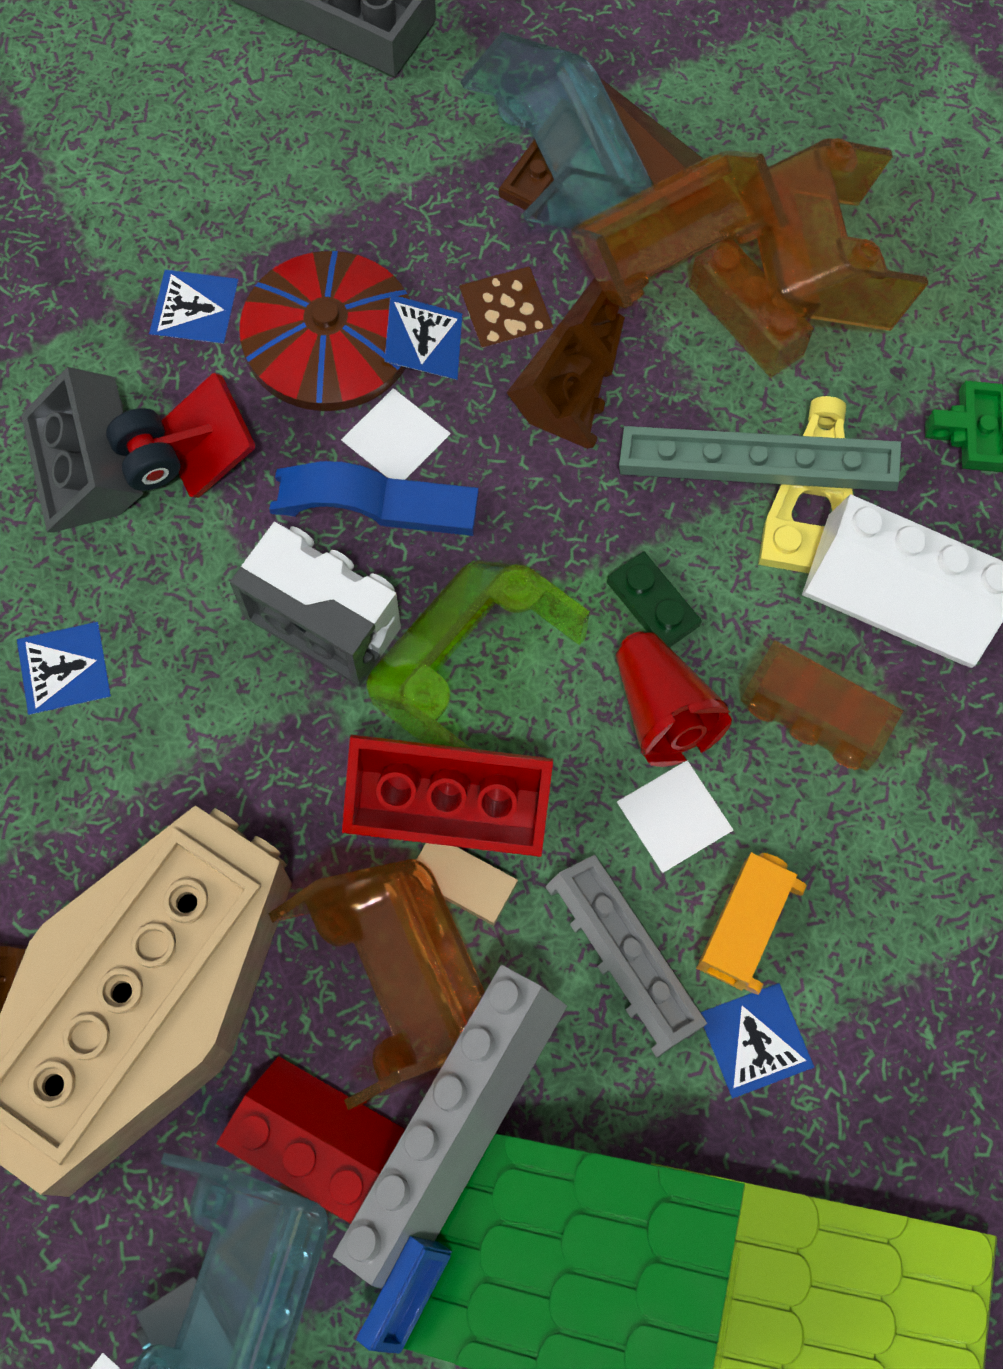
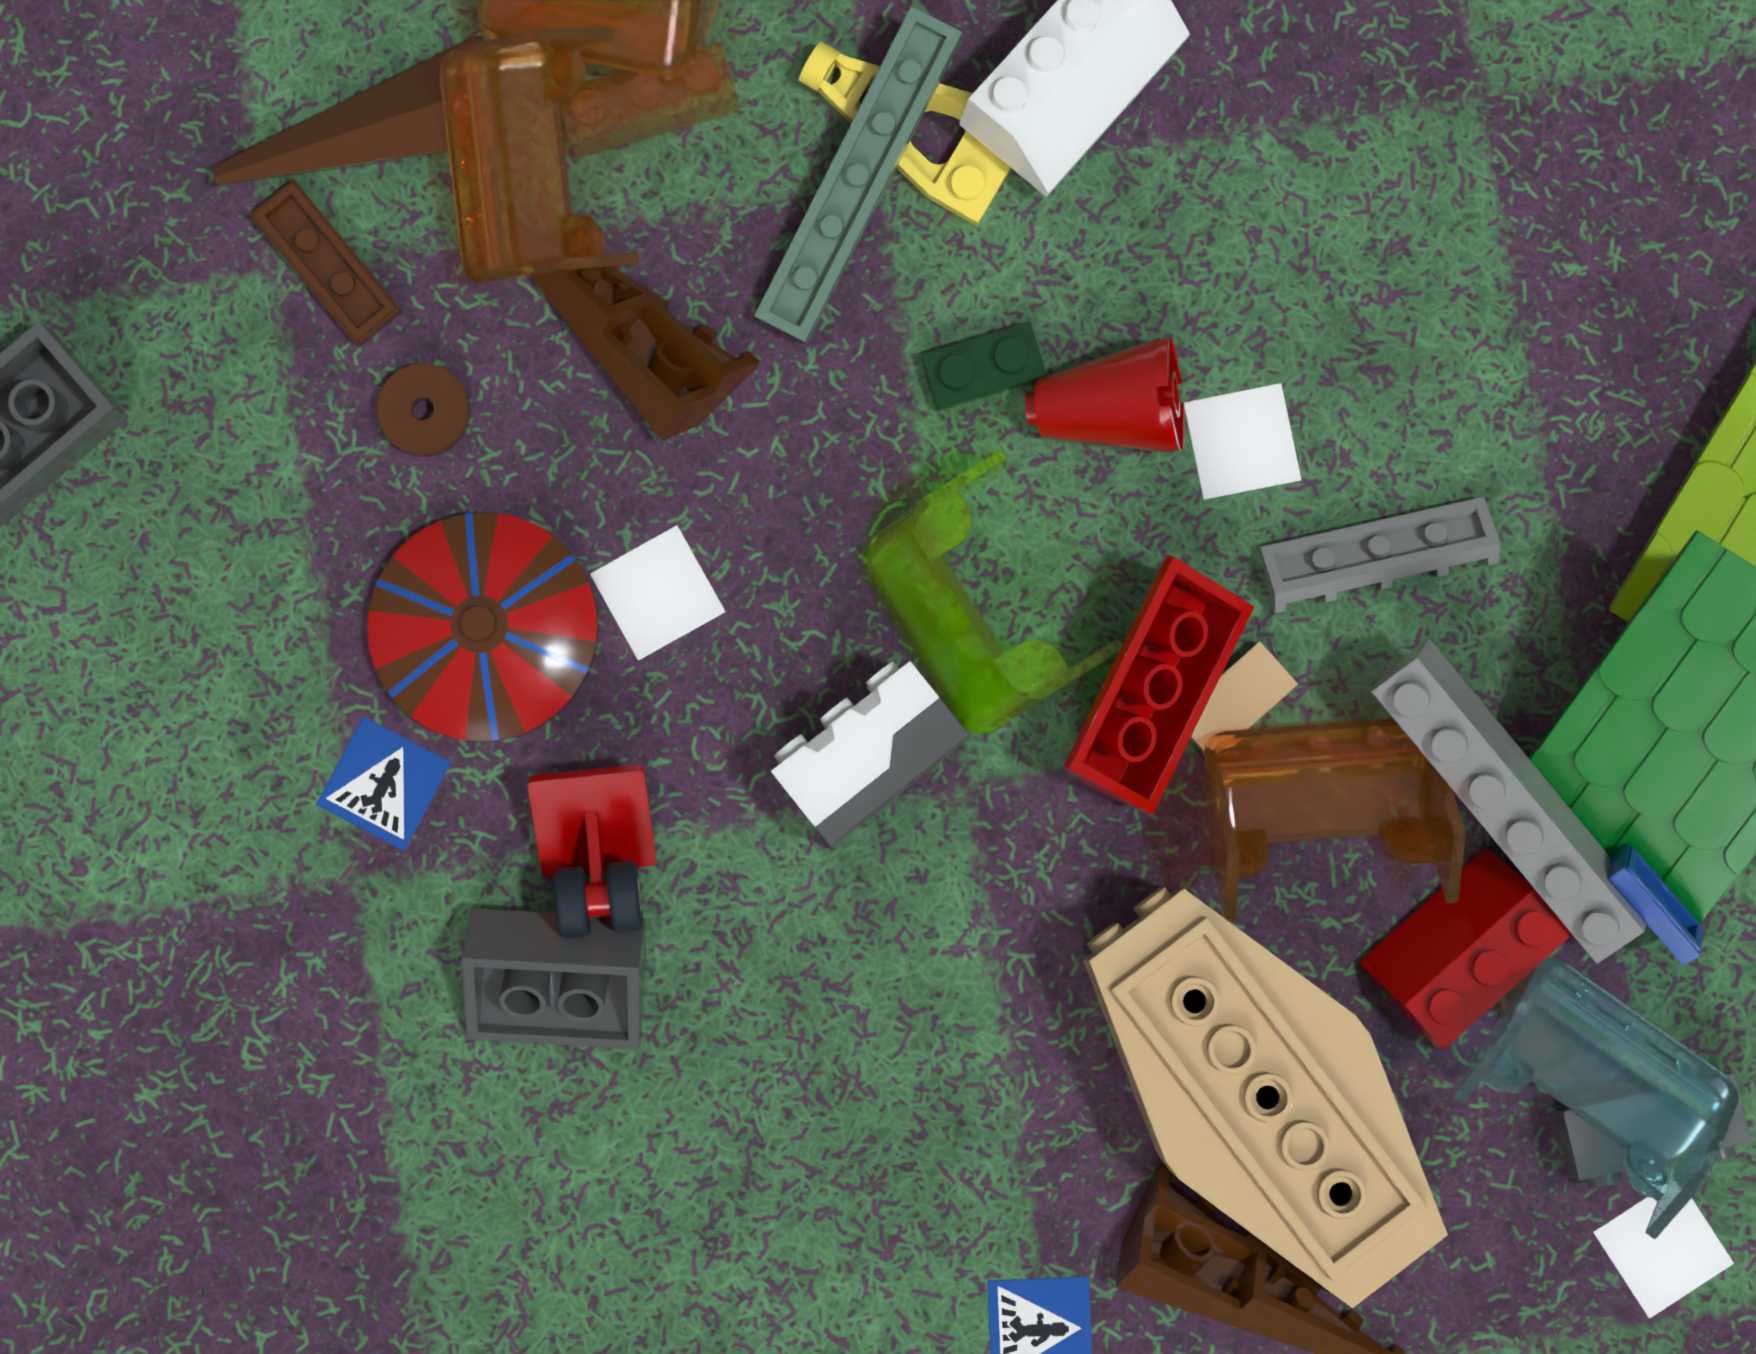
camera: 65 degrees left, 15 degrees up
(63, 668) = (821, 1075): blue sticker -> none
(381, 498) = (739, 644): blue piece -> none
(423, 337) = (539, 513): blue sticker -> none
(469, 228) = (419, 384): none -> reddish brown piece
(505, 306) = (524, 396): reddish brown sticker -> none
(571, 122) = (332, 218): clear light blue windscreen -> none
(749, 921) = (1392, 409): light orange brick -> none
(756, 1040) = (1514, 451): blue sticker -> none
(821, 707) = (1183, 232): clear orange brick -> none

